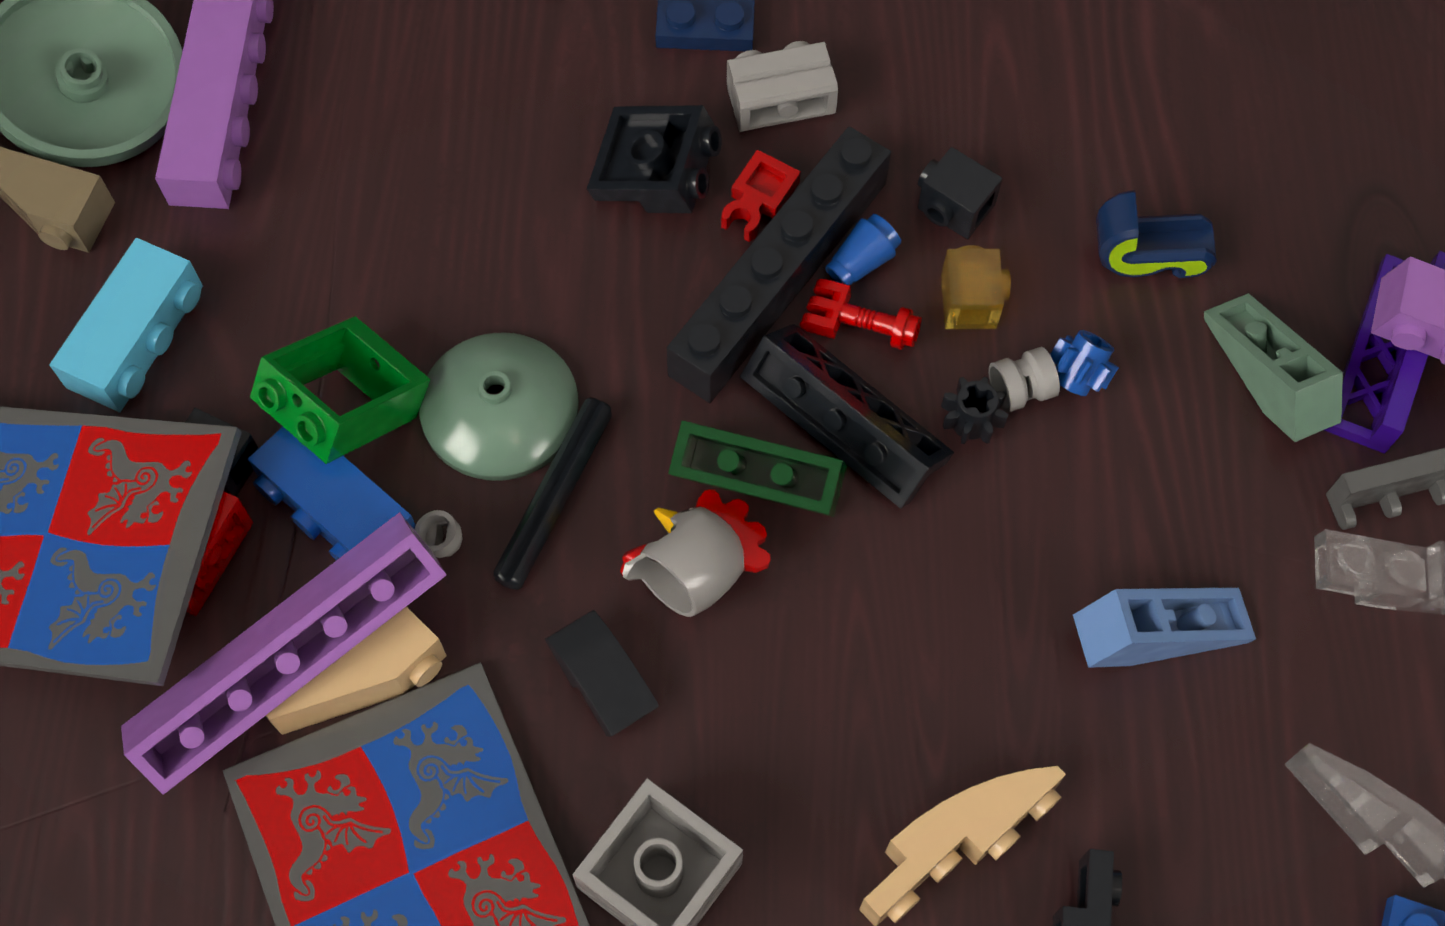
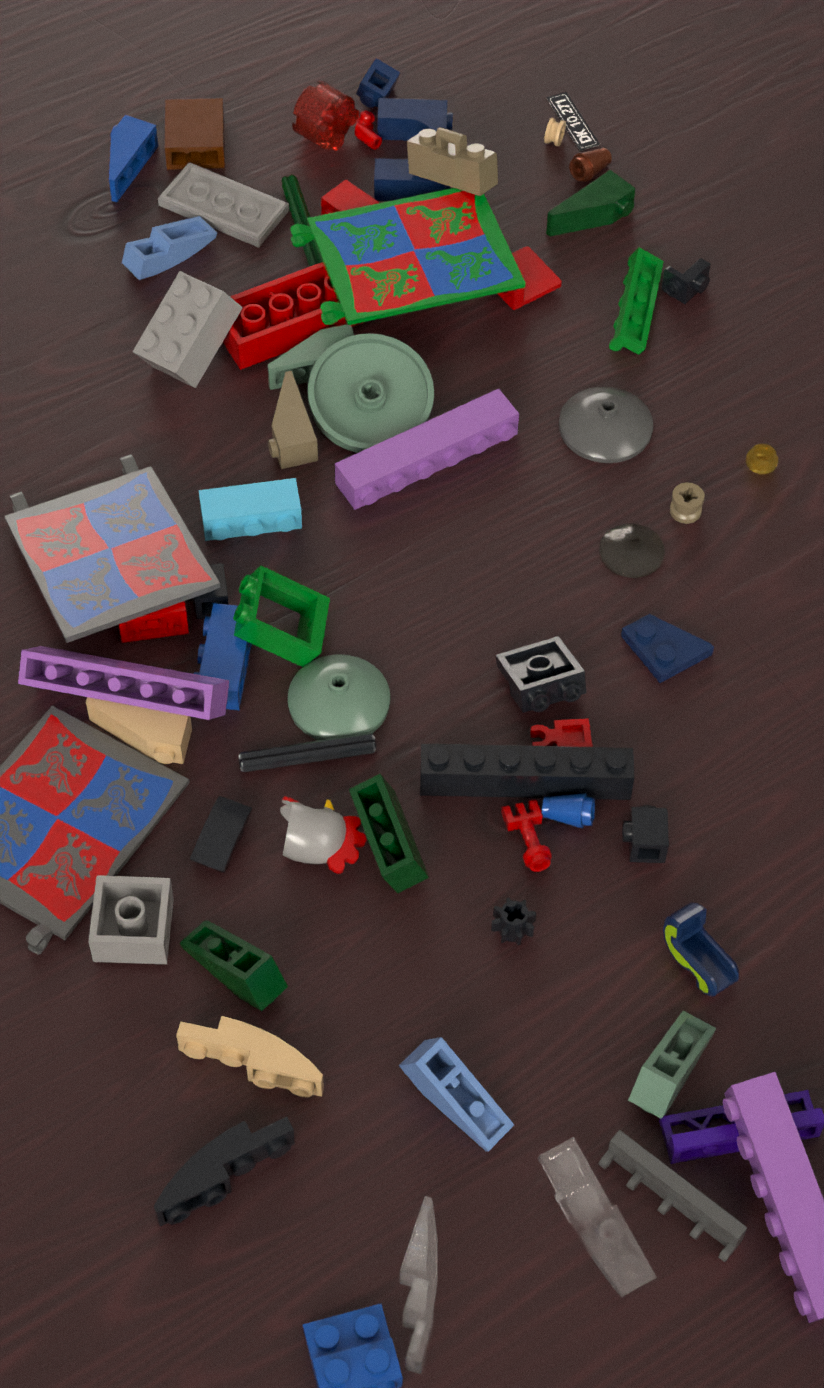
camera: 55 degrees right, 10 degrees down
(431, 531) = (241, 715): light grey hinge -> none
(781, 85) = (642, 706): light grey brick -> none
(807, 776) = (236, 964): none -> dark green slope
(847, 416) = (455, 855): black fence -> none
(973, 288) = (591, 876): clear yellow brick -> none
(1025, 378) = (553, 935): light grey wheel -> none
(1083, 362) = (587, 958): blue gear -> none

